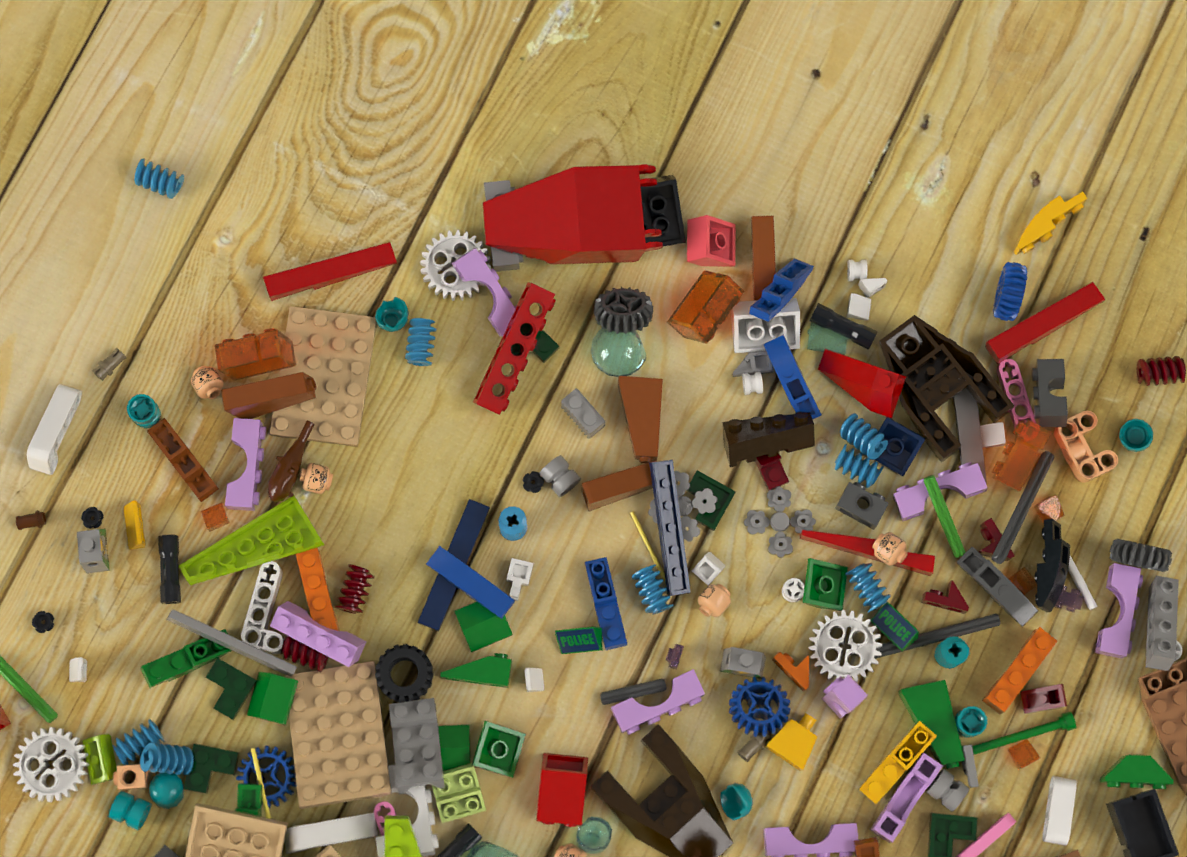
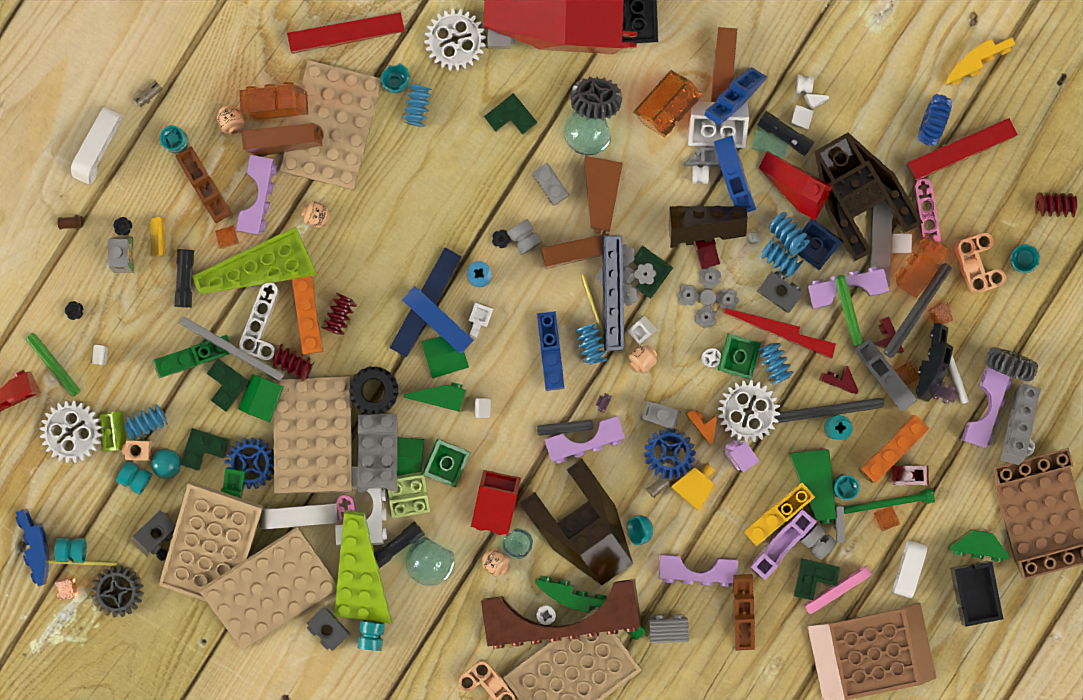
camera: 10 degrees right, 10 degrees up
(166, 758) = (168, 439): dark azure piece -> none
(259, 778) = (244, 468): light yellow axle -> none
(288, 467) = (293, 203): reddish brown piece -> none
(335, 644) = (286, 338): lavender arch -> none
(473, 267) = (492, 90): lavender arch -> none
(503, 355) = (479, 166): red brick -> none
(579, 640) = (524, 380): slope -> none
(711, 242) = (680, 44): coral slope -> none
(890, 548) = (797, 334): light nougat head -> none
(895, 627) = (793, 399): slope -> none
(1050, 409) = (957, 198): dark grey arch -> none

